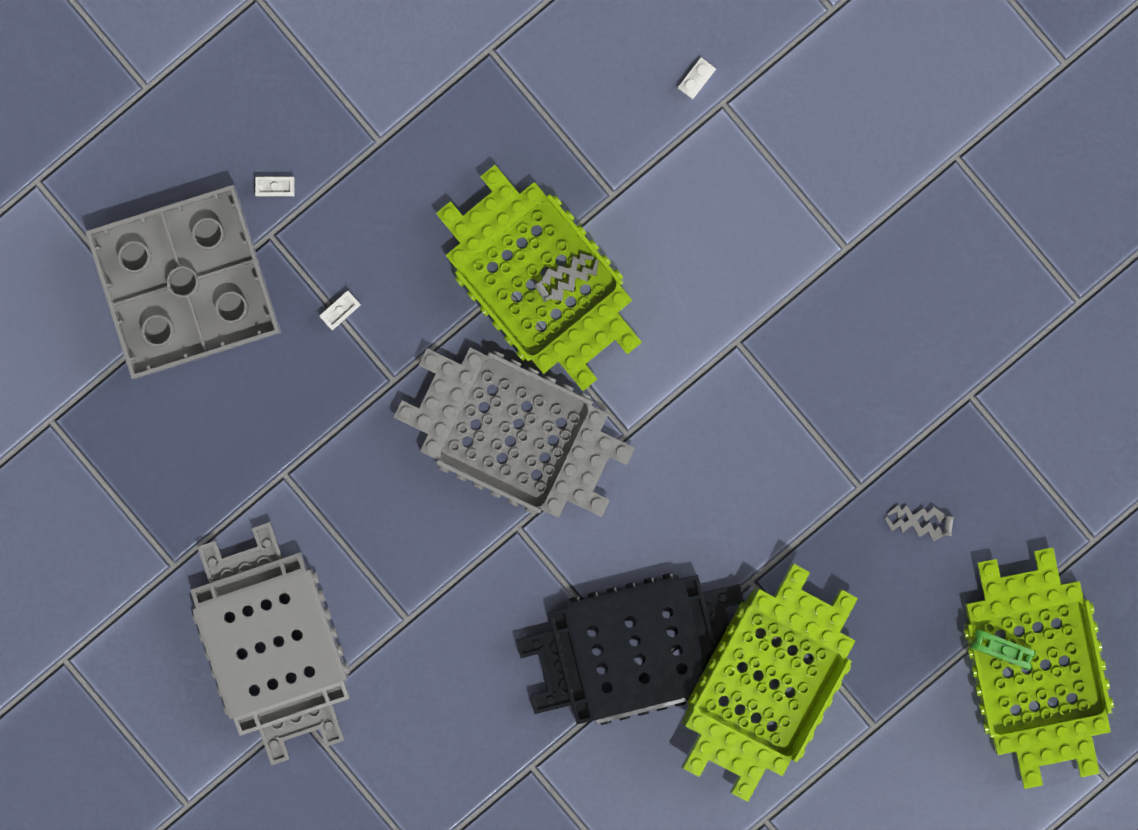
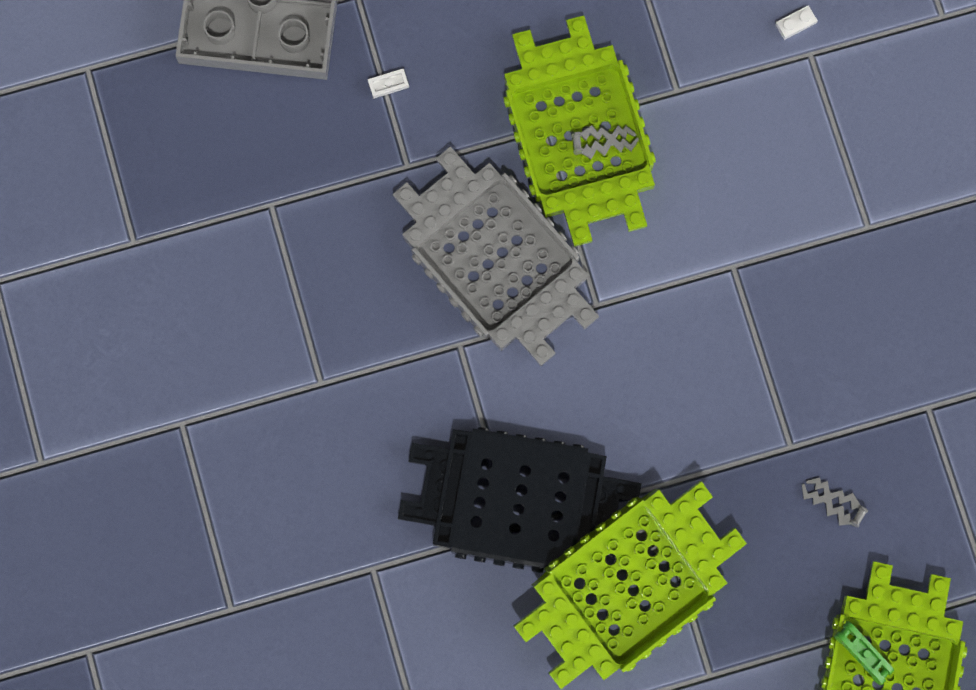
camera: 20 degrees right, 10 degrees down
(248, 580) = (180, 412): light grey piece -> none

